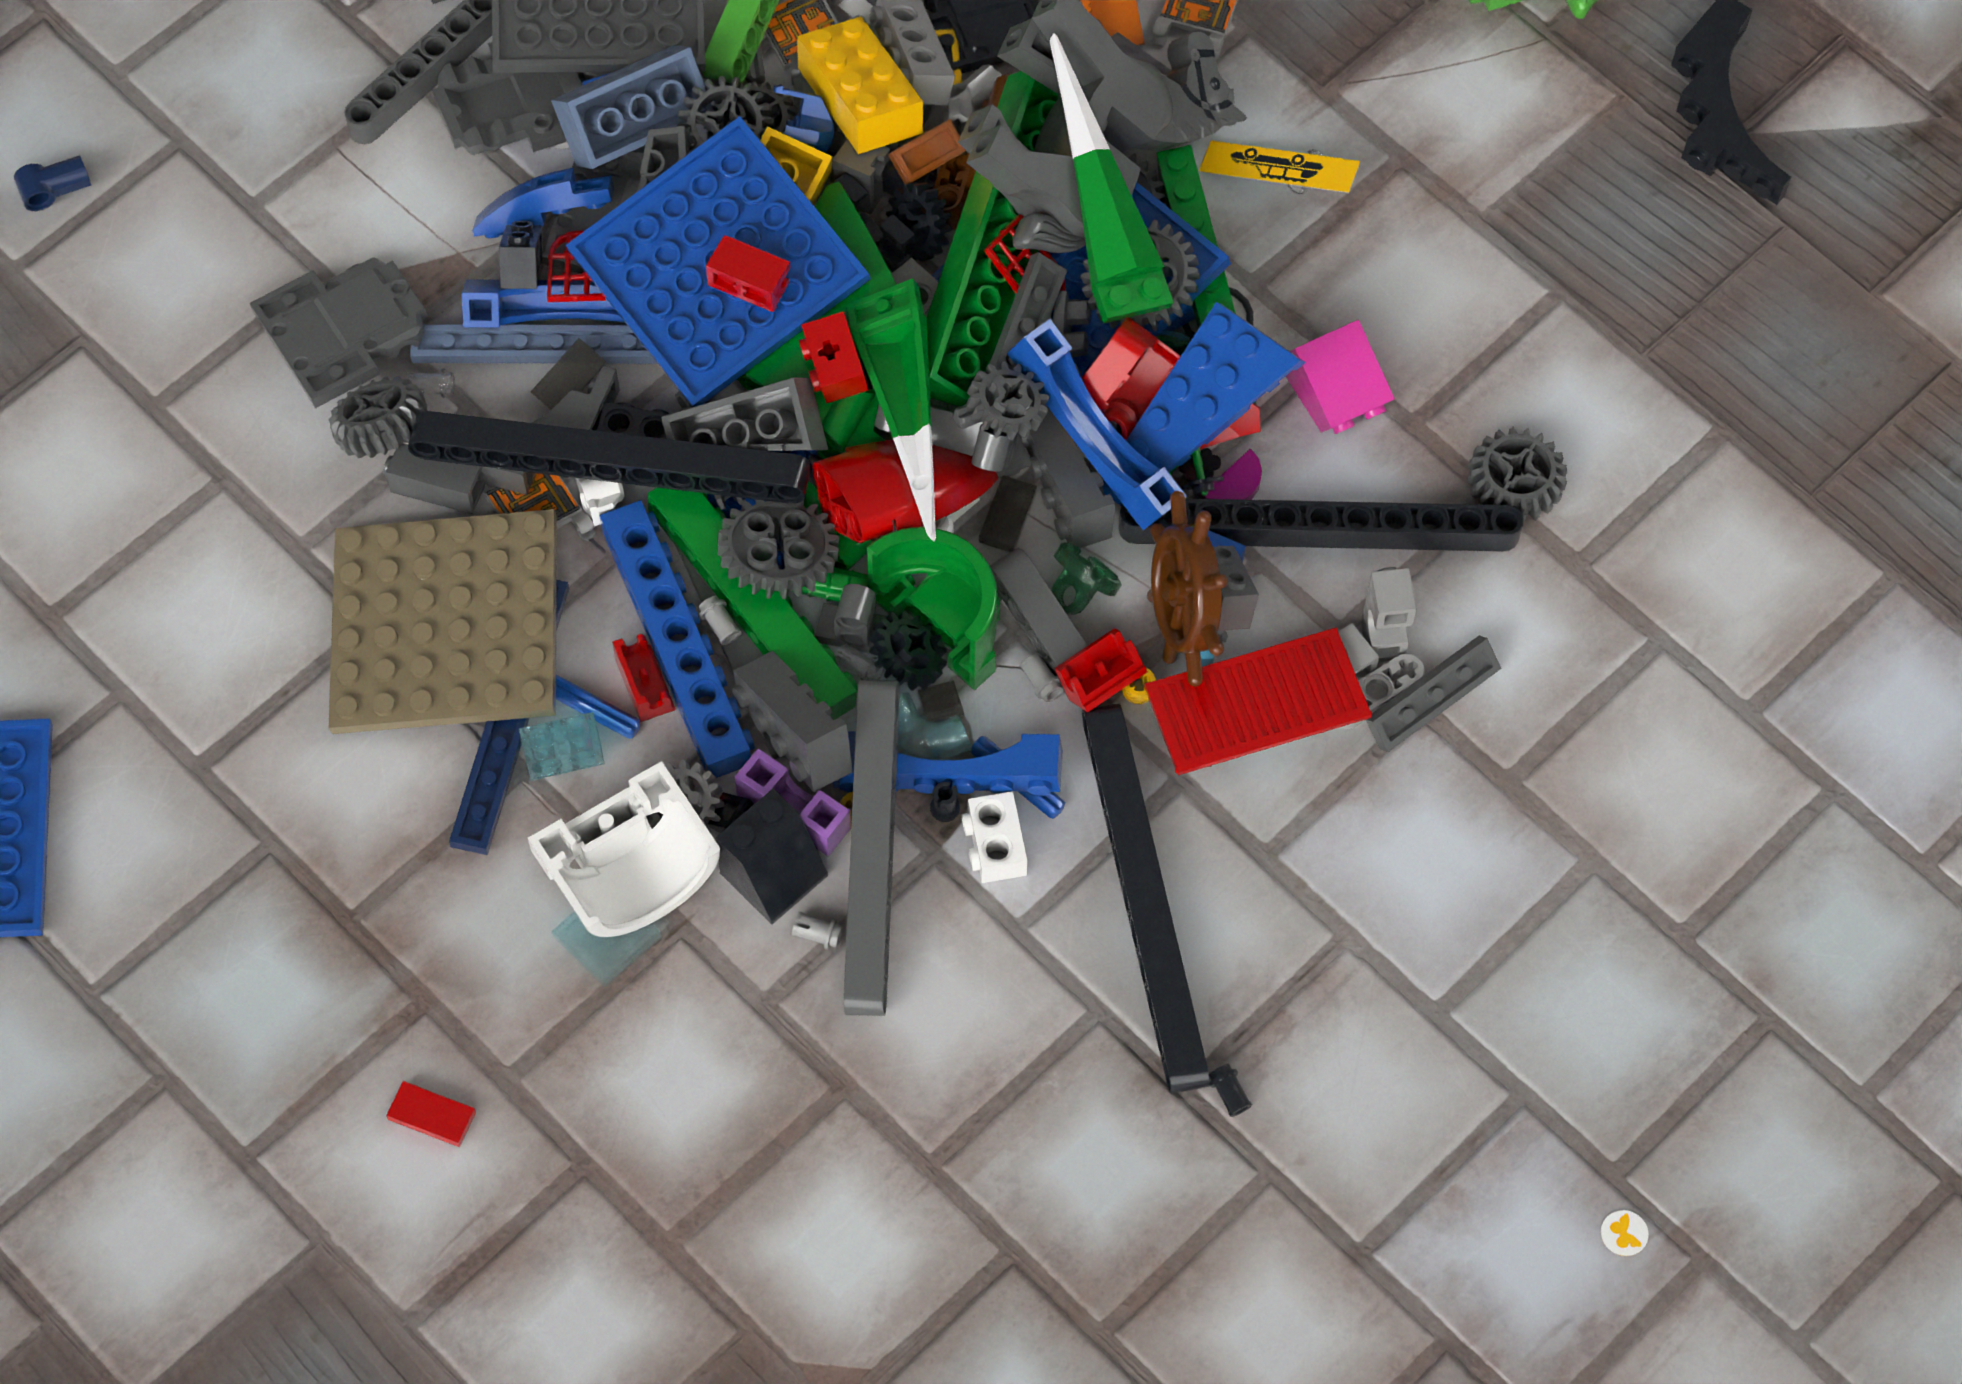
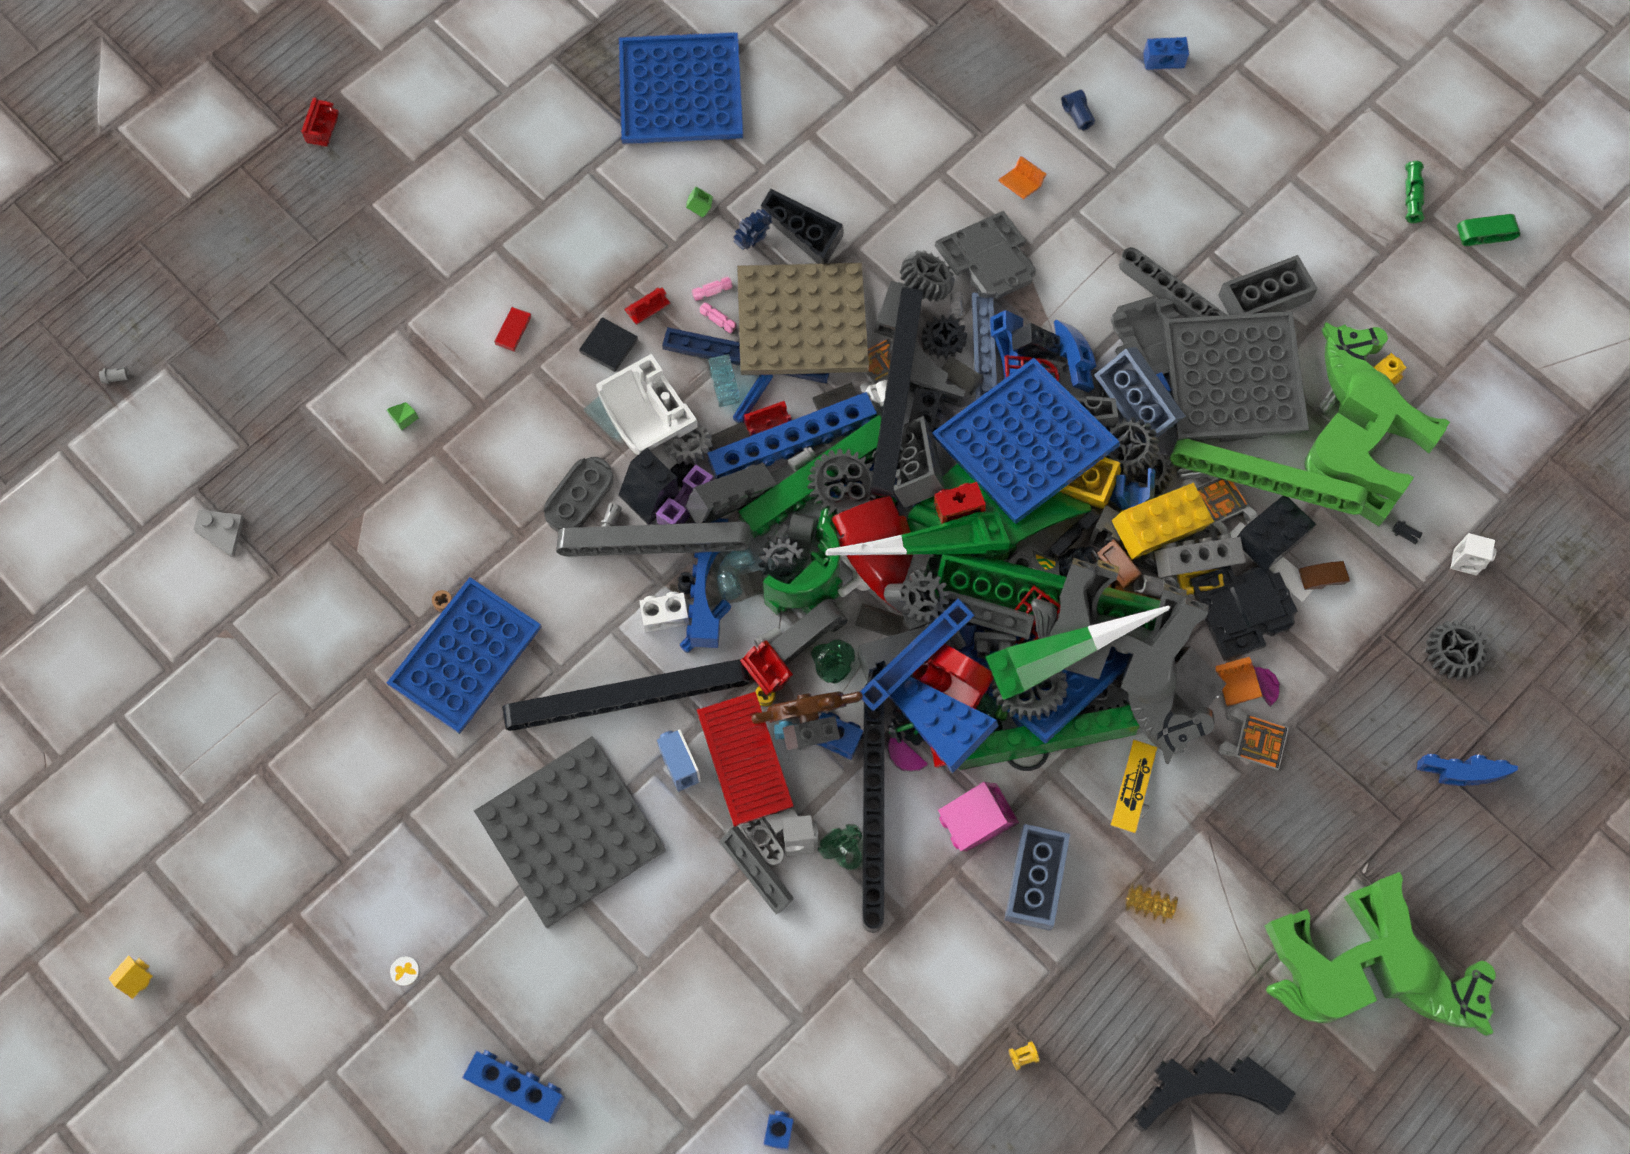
camera: 90 degrees right, 5 degrees up
(185, 271) = (1023, 178): none -> orange piece
(185, 796) = (699, 202): none -> bright green slope
(259, 615) = (804, 226): none -> black wedge
(264, 693) = (752, 229): none -> dark blue gear
(369, 773) = (712, 288): none -> bright pink axle
(396, 880) = (647, 305): none -> red hinge
(429, 763) = (718, 317): none -> bright pink axle
(472, 946) = (608, 344): none -> black tile
(507, 391) = (936, 342): none -> black gear
(601, 575) = (834, 396): none -> clear smoke tile
(602, 1299) = (402, 415): none -> bright green slope
(669, 738) = (729, 436): none -> clear smoke tile
(748, 273) = (1010, 451): red hinge -> none
(769, 988) = (578, 493): none -> dark grey tile
(927, 254) = (1044, 563): none -> dark grey sticker
(984, 1204) = (440, 595): none -> medium nougat bush
(1074, 1161) = (464, 655): none -> blue plate
(1229, 1089) = (503, 741): black pin -> none
(1263, 801) = (678, 759): none -> medium blue piece
(1378, 982) = (569, 831): none -> dark grey plate
(1388, 549) = (840, 843): none -> clear green tile
(1429, 299) = (1037, 877): none -> sand blue brick
(1459, 154) = (1151, 903): none -> clear yellow piece
(1508, 456) = (921, 936): dark grey gear -> none
(1693, 332) = (1019, 1061): none -> yellow bush
(1829, 994) = (478, 1074): none -> blue brick
(1843, 650) = (774, 1141): none -> blue brick

